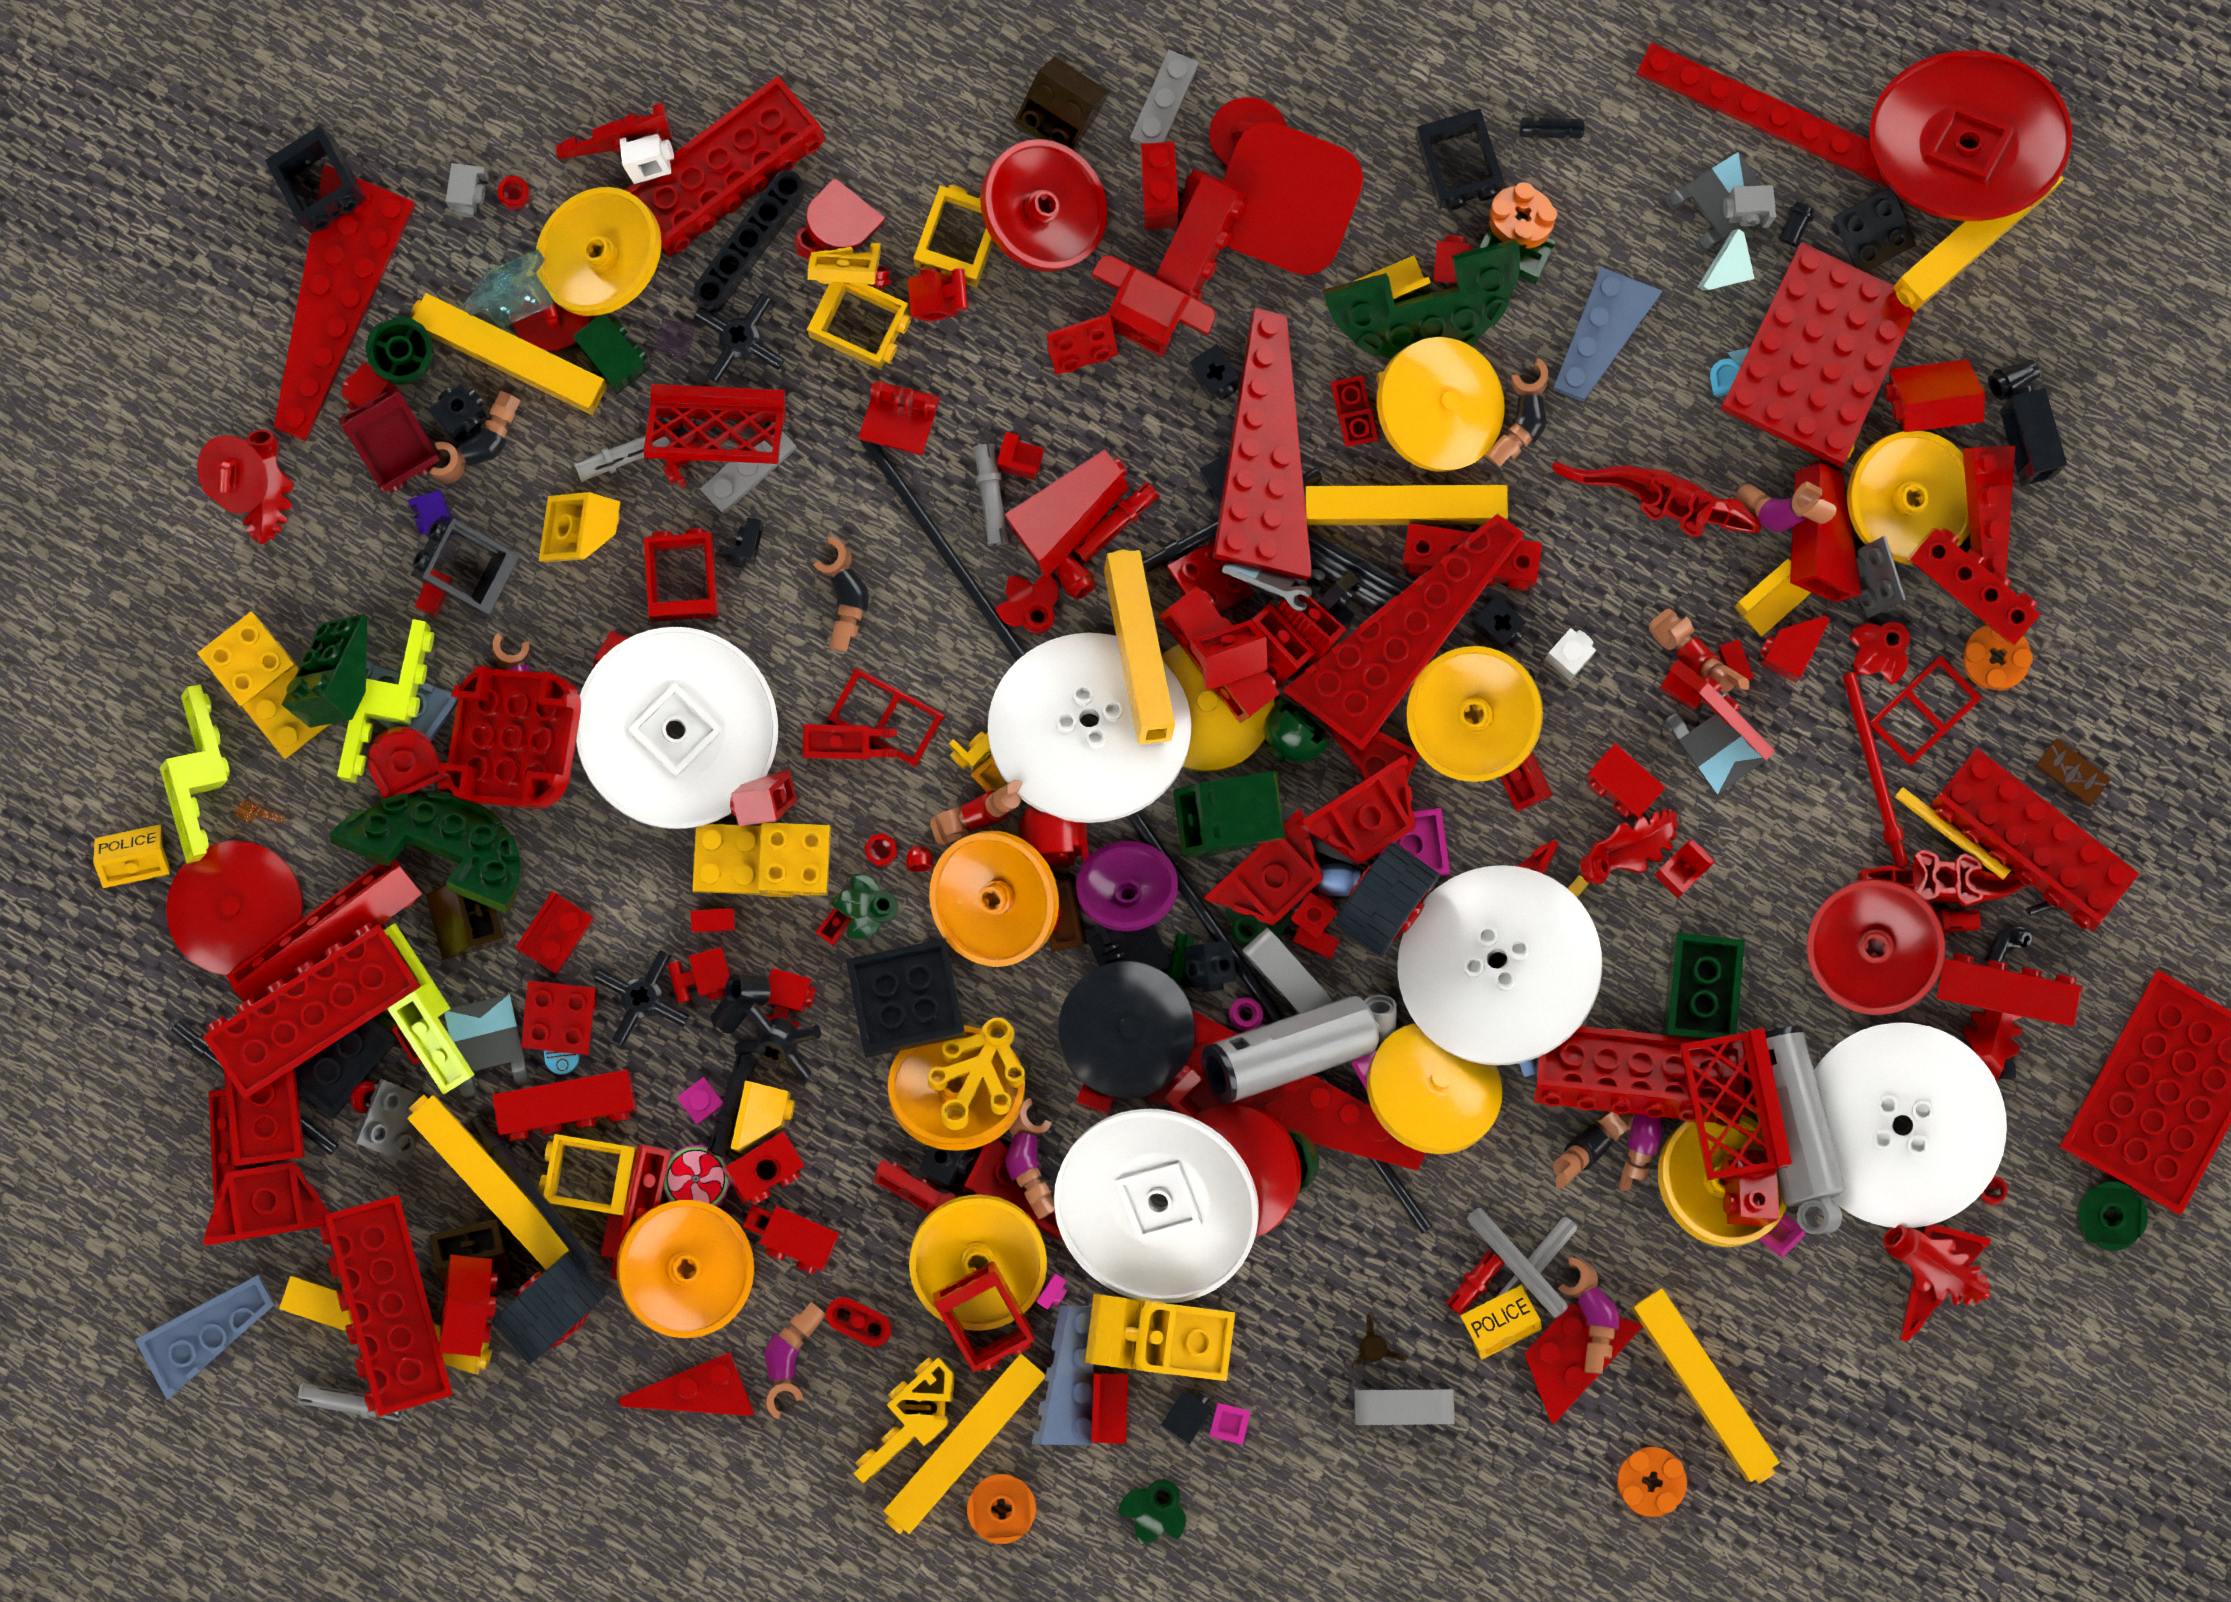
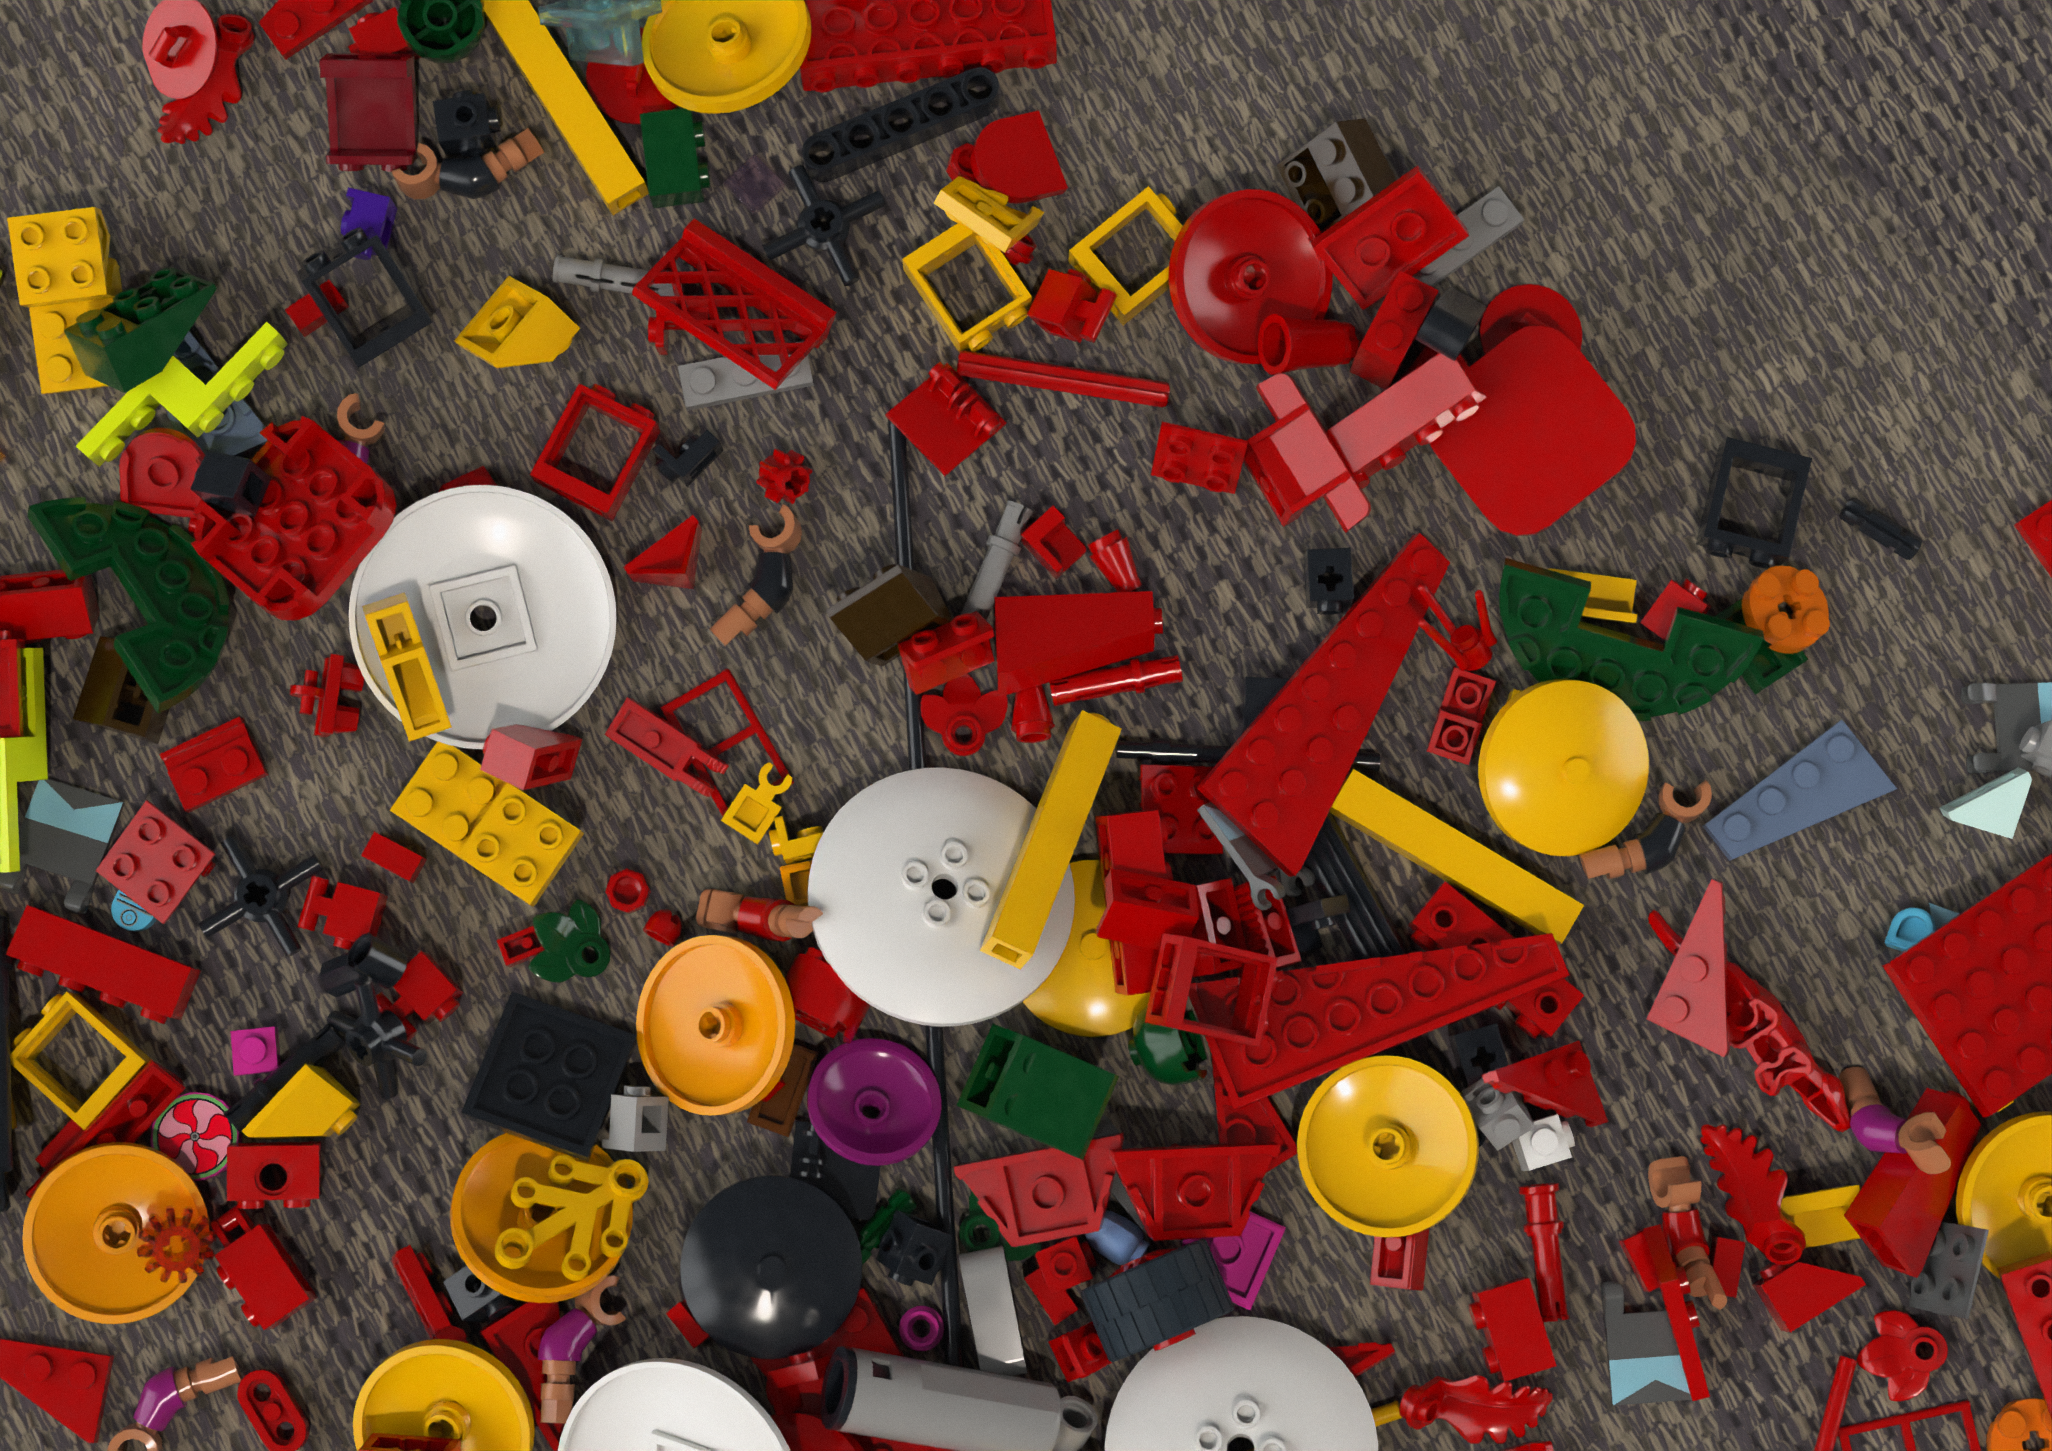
camera: 30 degrees right, 0 degrees up
(454, 739) = (230, 483): none -> black brick
(600, 843) = (335, 677): none -> red hips
(648, 787) = (406, 666): none -> yellow slope
(742, 1251) = (160, 1238): none -> clear red gear
(774, 618) = (671, 559): none -> red slope
(816, 518) = (784, 476): none -> red gear
(931, 747) = (753, 809): none -> yellow plate
(943, 565) = (888, 612): none -> dark brown slope
(959, 345) = (1063, 378): none -> red axle
(980, 991) = (637, 1121): none -> light grey brick
(995, 568) = (947, 651): none -> red bracket
(1067, 444) = (1115, 561): none -> red cone
(1104, 229) = (1302, 343): none -> red plant
(1118, 124) = (1390, 233): none -> red plate
(1195, 158) = (1451, 323): none -> black beam
(1275, 688) = (1173, 983): none -> red window
(1331, 362) = (1468, 645): none -> red plant
(1357, 965) = (1079, 1352): none -> red bracket
(1530, 647) = (1498, 1114): none -> light grey brick
(1556, 608) = (1554, 1081): none -> red wing
(1605, 707) = (1543, 1229): none -> red pin
(1610, 498) = (1694, 991): none -> wing
(1725, 603) = (1754, 1193): none -> red plant

